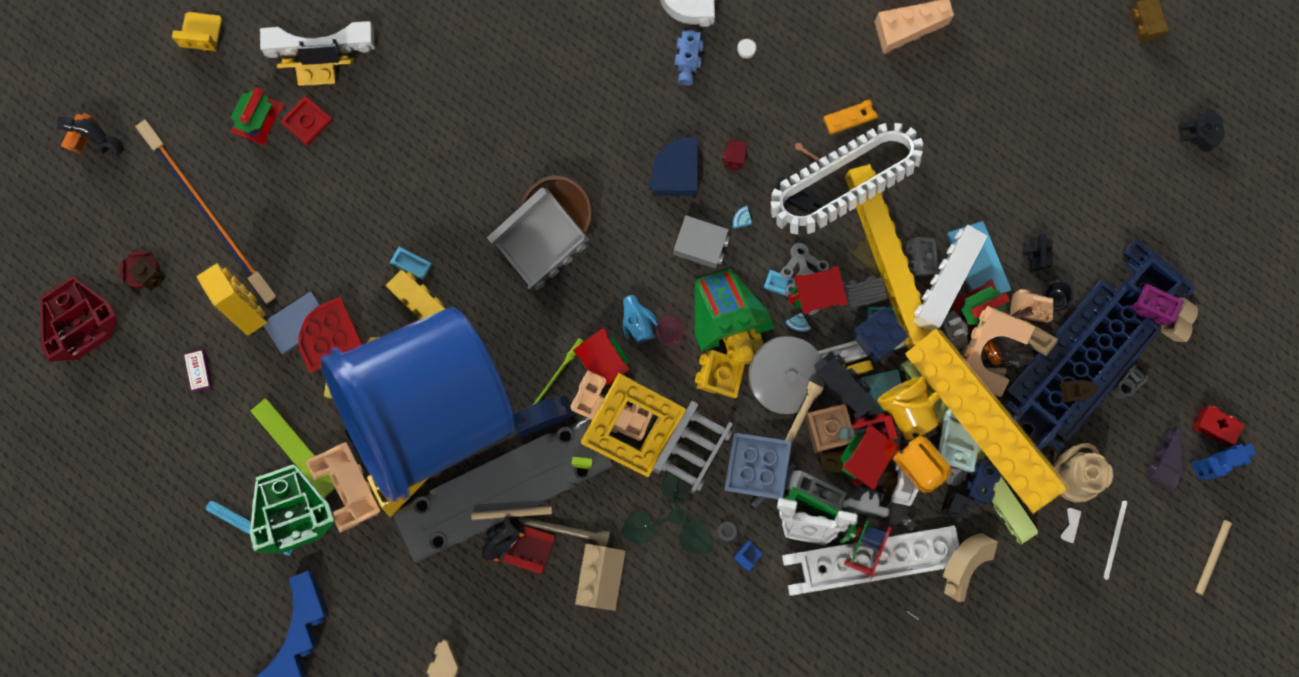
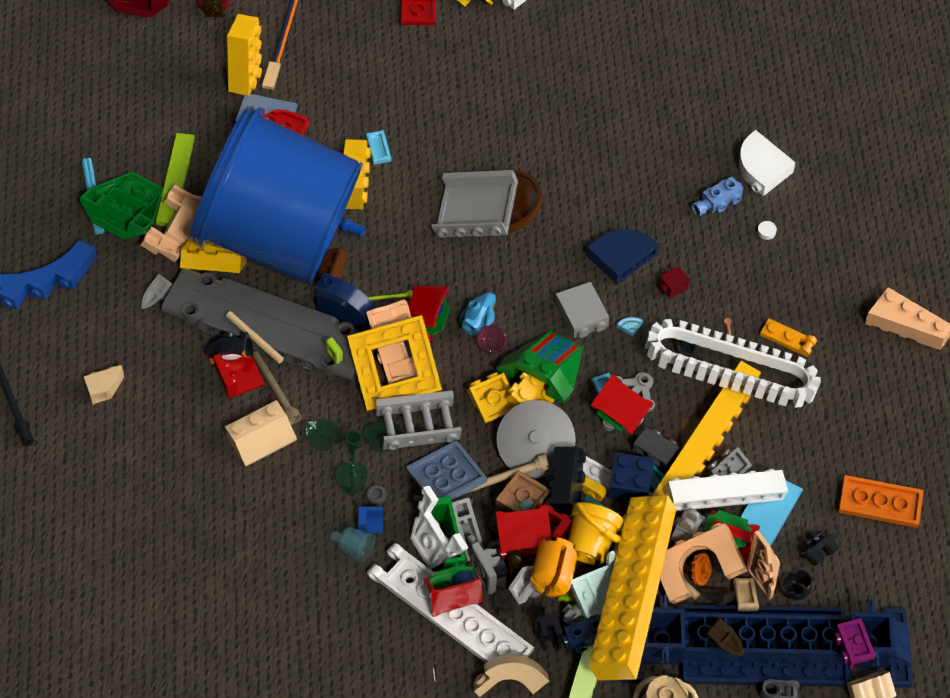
camera: 50 degrees right, 20 degrees down
(197, 370) = (175, 83): tile -> none
(392, 551) = (157, 290): none -> light grey plate
(760, 586) = (355, 543): none -> clear light blue hat
(798, 323) = (586, 423): medium azure tile -> none
(1037, 177) = (881, 501): none -> orange plate

